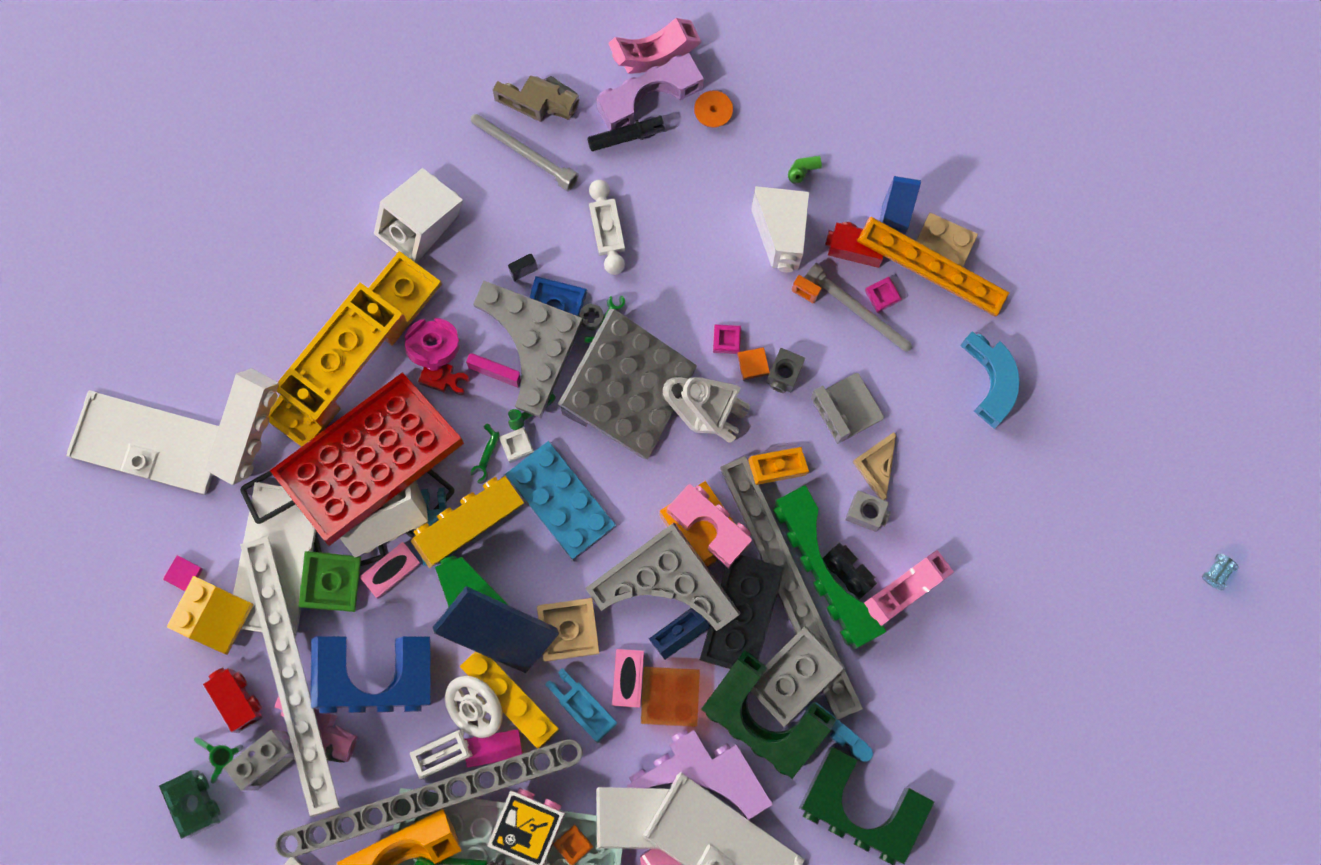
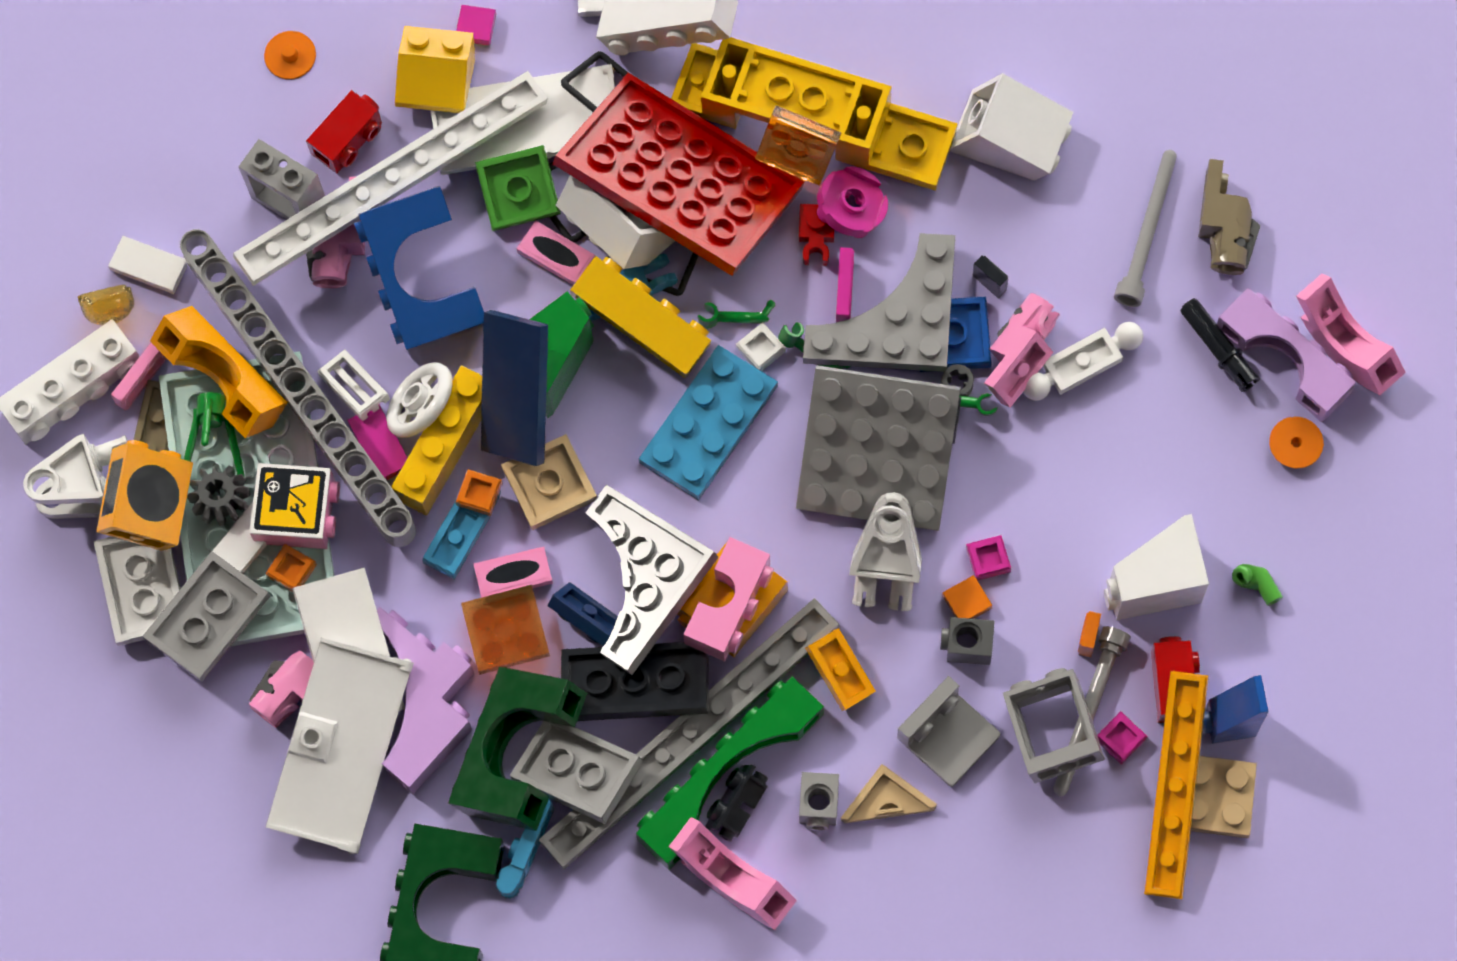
camera: 80 degrees right, 5 degrees down
(150, 725) = (290, 55): none -> orange piece
(176, 795) = (216, 110): clear green brick -> none
(218, 756) = (274, 134): green plant -> none
(378, 364) = (797, 145): none -> clear orange plate
(561, 683) = (479, 492): none -> orange tile
(583, 263) = (1021, 348): none -> bright pink plate
(894, 332) = (1063, 759): none -> light grey window
(1002, 375) = (1047, 928): dark azure arch -> none

